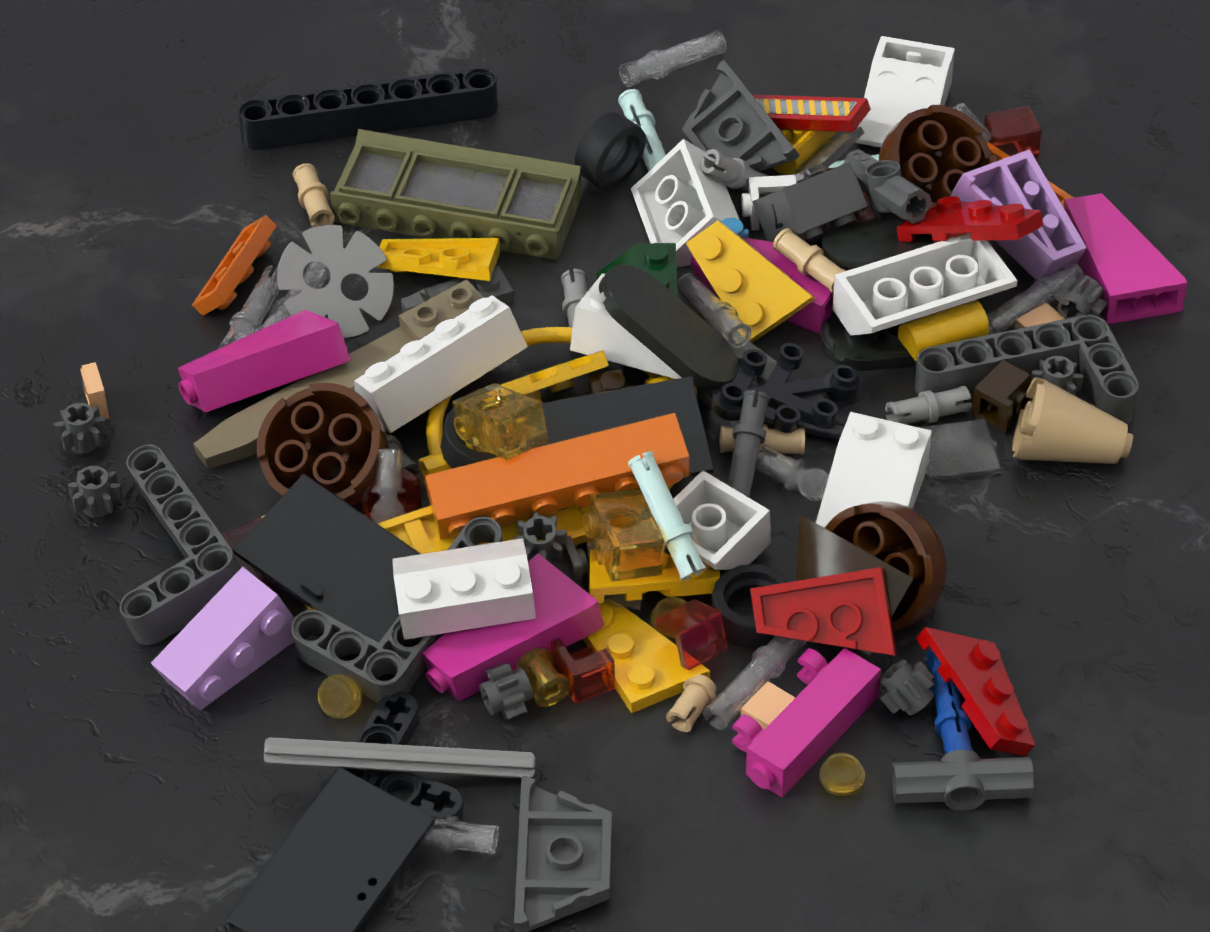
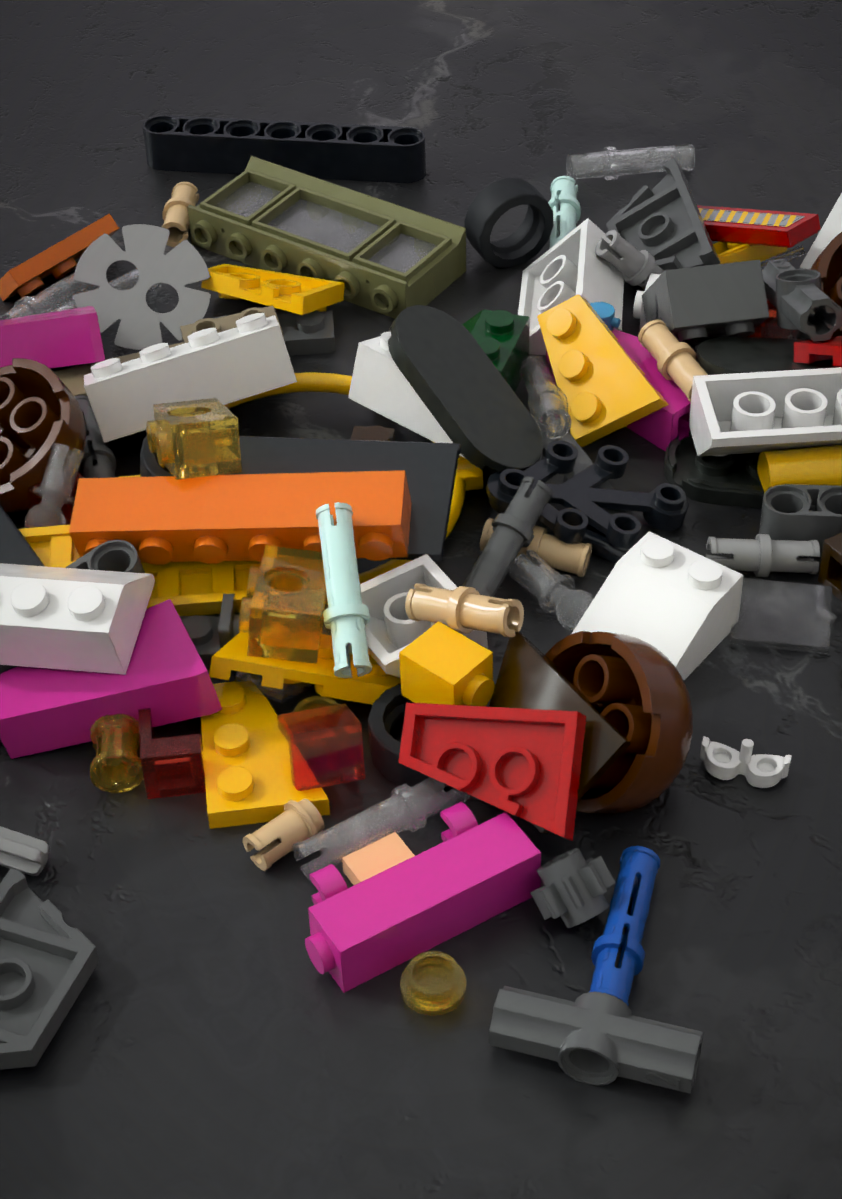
camera: 20 degrees right, 5 degrees down
(506, 691) = (57, 757): dark grey gear -> none
(543, 529) = (190, 587): dark grey gear -> none
(558, 376) = (311, 422): yellow wing -> none
(761, 510) = (465, 610): none -> tan pin
(762, 558) = (446, 669): none -> yellow brick
(985, 685) = (681, 916): red wing -> none
(989, 572) = (727, 763): none -> white piece

